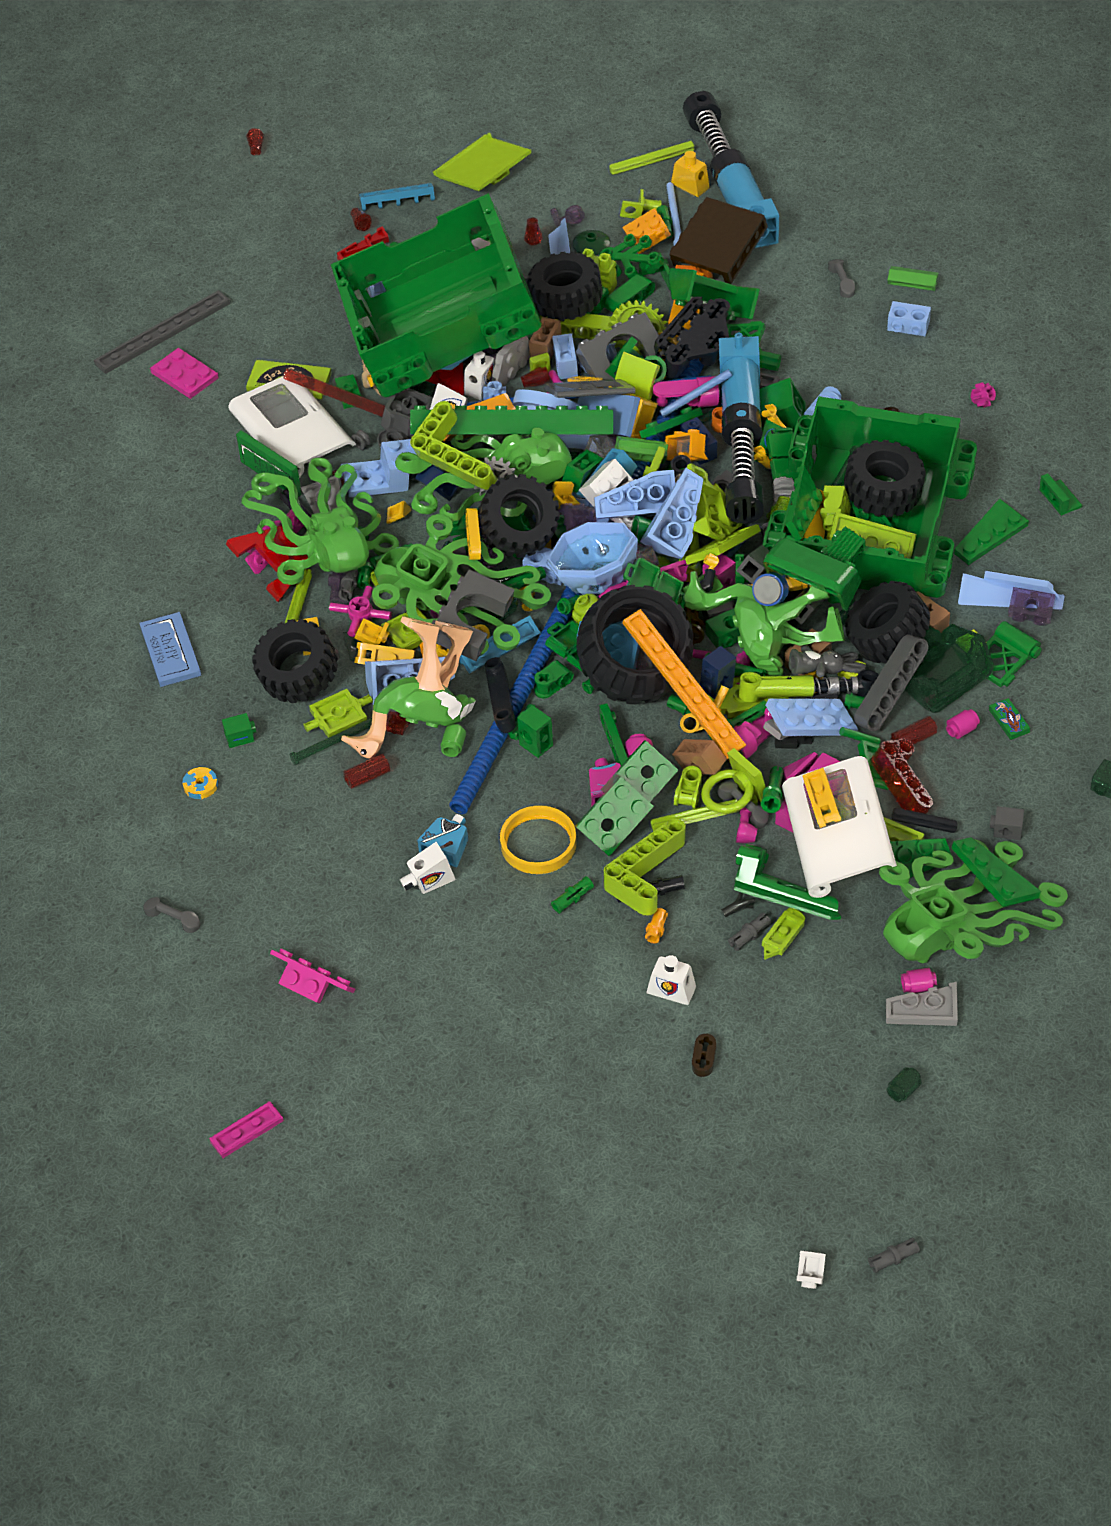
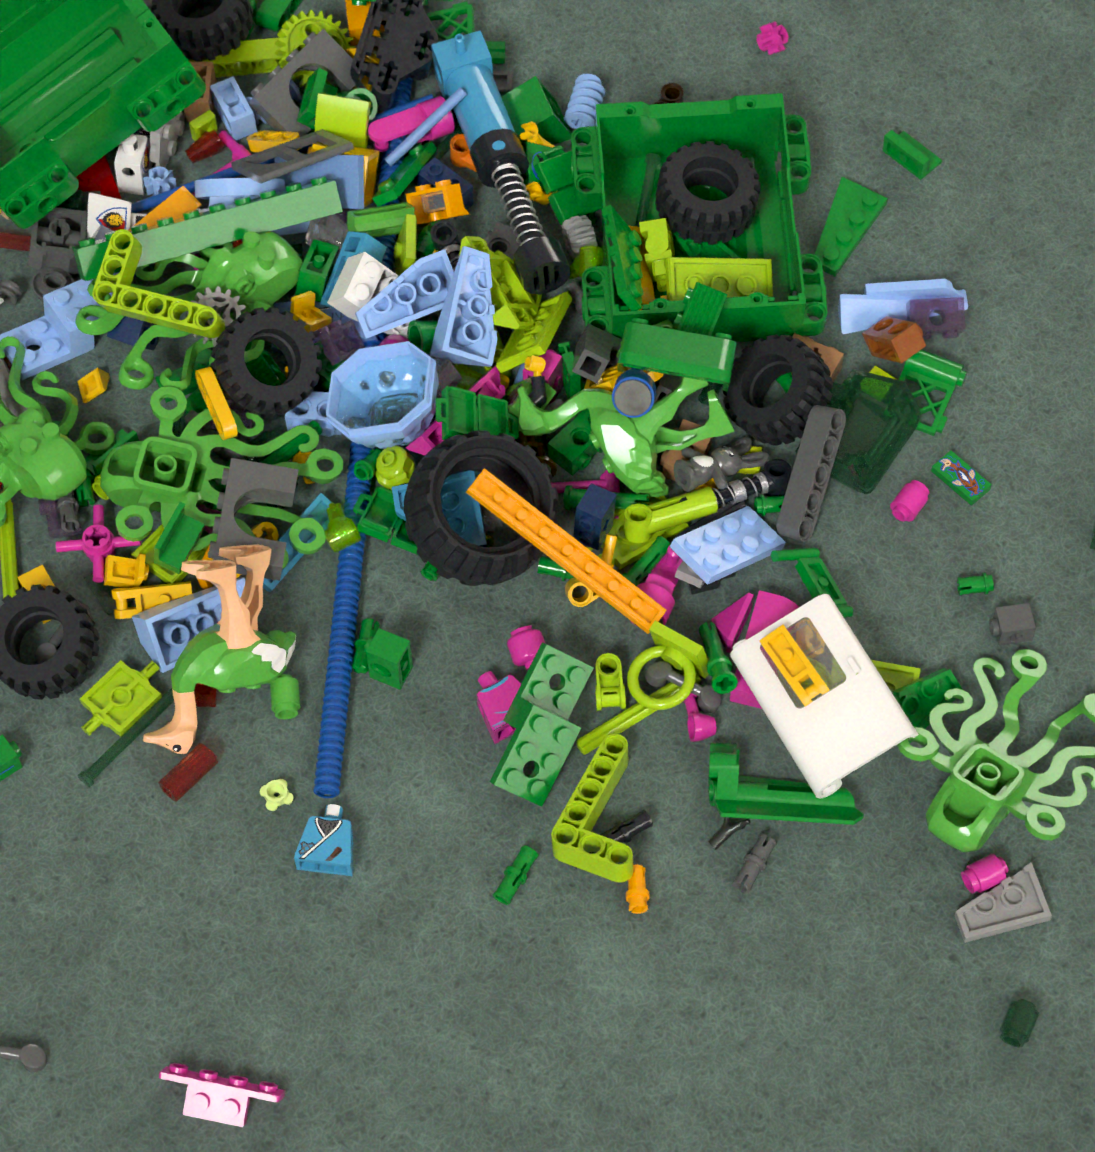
camera: 20 degrees left, 10 degrees up
(411, 607) = (177, 540): none -> green panel
(420, 796) = (276, 786): none -> yellowish green plate
(428, 870) = (322, 897): white torso -> none
(500, 695) = (325, 618): black piece -> none
(531, 813) = (435, 768): yellow piece -> none
(532, 640) = (341, 530): none -> clear neon green axle
(552, 679) = (380, 575): green piece -> none
(608, 722) = (473, 615): green plate -> none
(672, 980) = (685, 964): white torso -> none
(699, 1054) = (767, 1053): dark brown beam -> none
(700, 753) = (610, 636): medium nougat brick -> none
(783, 933) = (797, 856): lime plate -> none
(892, 765) = (866, 600): clear red beam -> none
(916, 731) = (855, 530): clear red axle -> none
(924, 820) = (912, 648): black axle -> none
(992, 612) = (894, 339): none -> dark orange brick
(992, 791) = (975, 584): none -> green pin
(998, 878) = (1031, 705): green wing -> none

